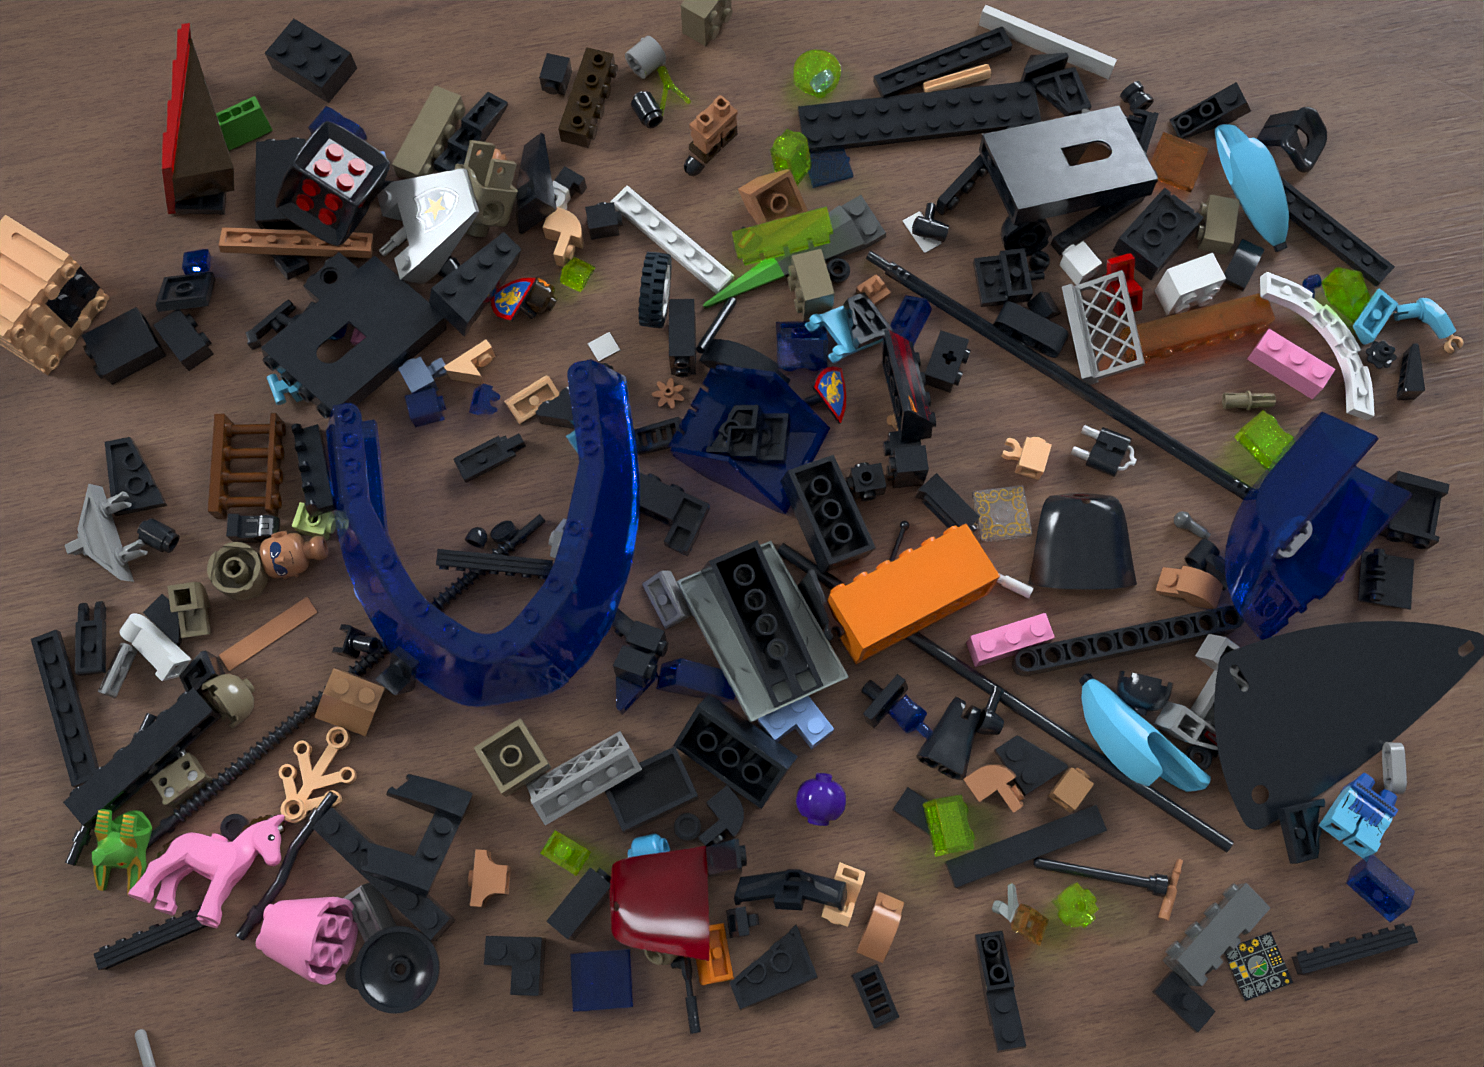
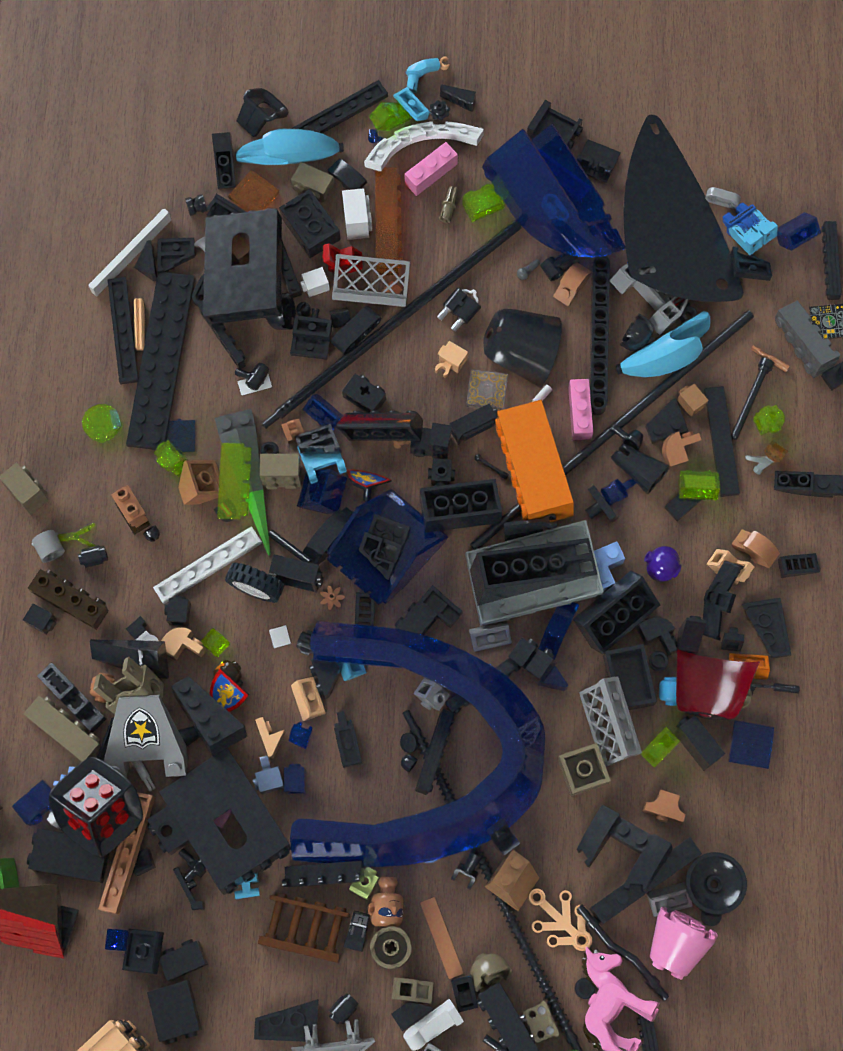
camera: 75 degrees left, 0 degrees up
(526, 958) = (727, 792): black brick -> none

